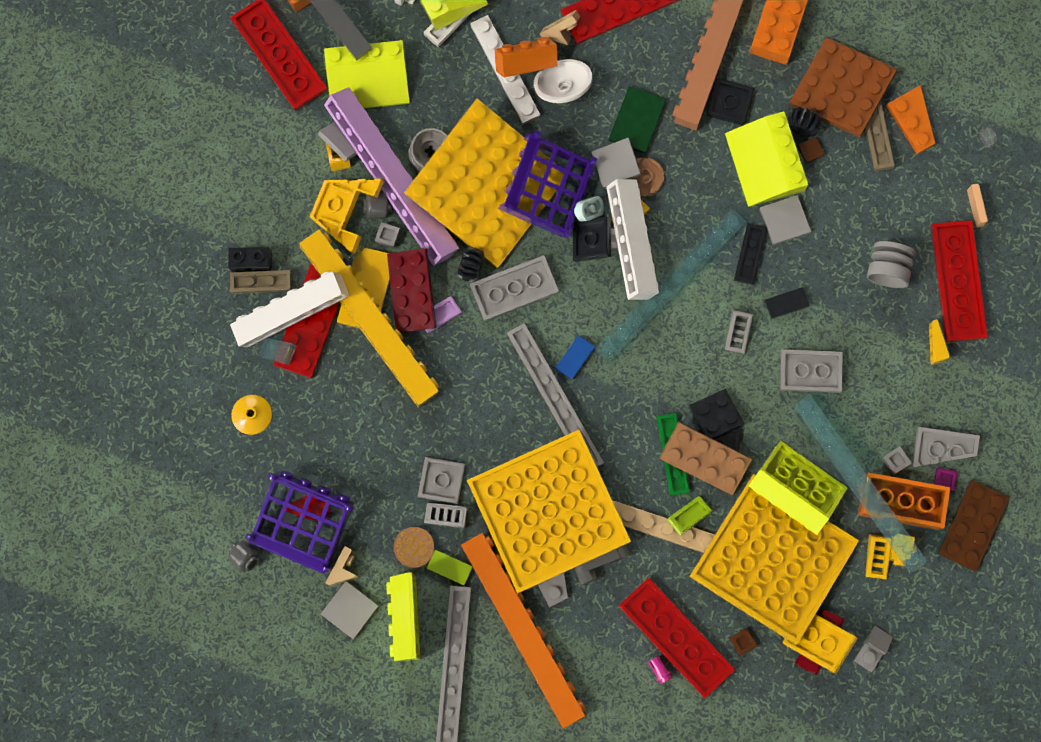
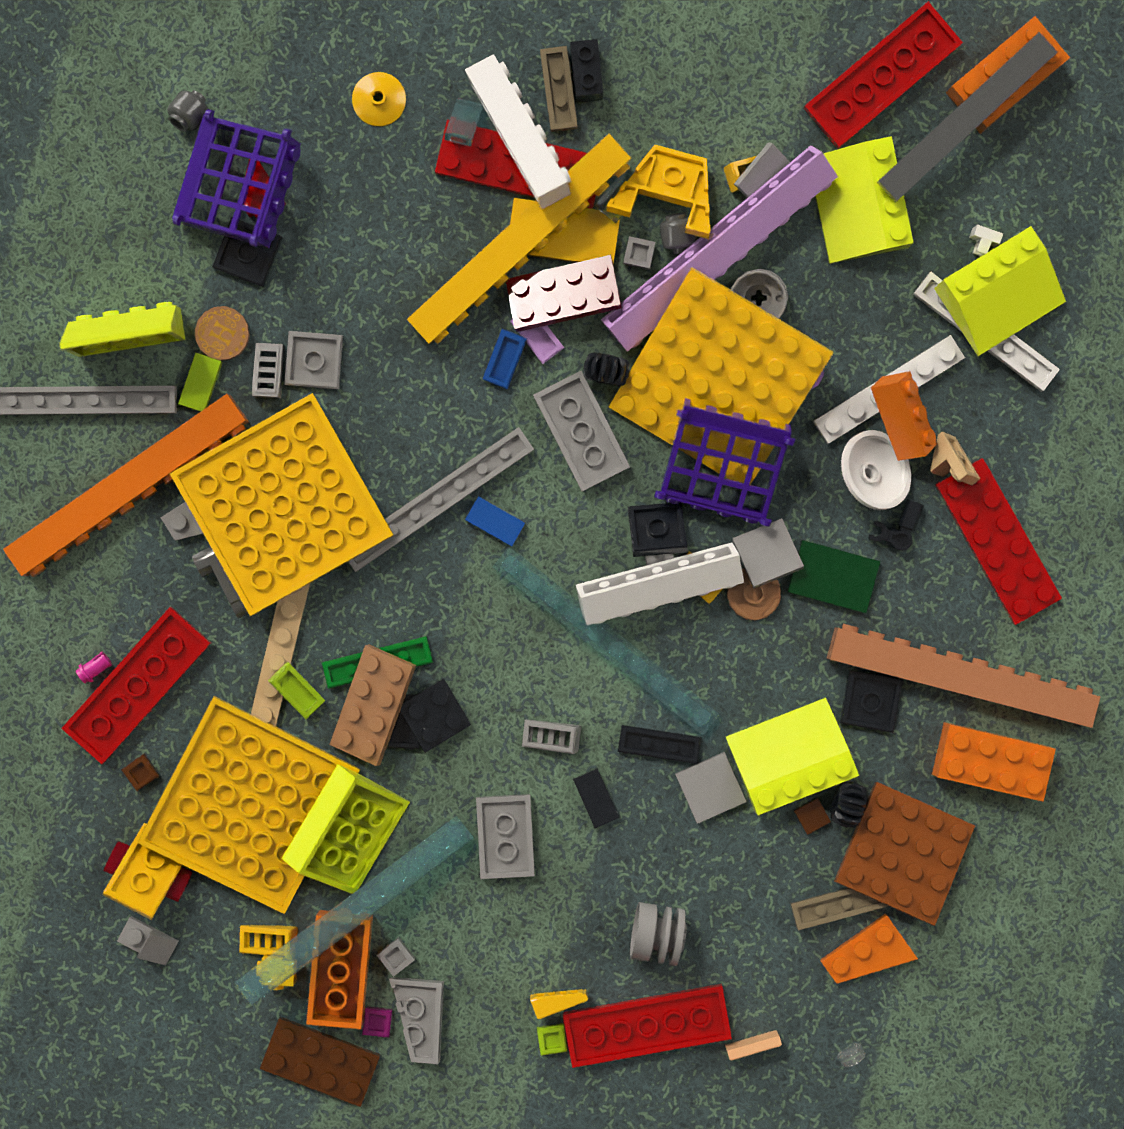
camera: 80 degrees right, 10 degrees up
(338, 573) = (177, 240): tan slope -> none
(349, 610) = (132, 258): light grey tile -> none
(359, 524) = (246, 261): none -> black tile
(455, 339) = (504, 358): none -> blue tile
(589, 208) = (698, 522): light aqua plate -> none
(613, 69) = (908, 521): none -> black bar
(965, 351) = (551, 1039): none -> lime tile

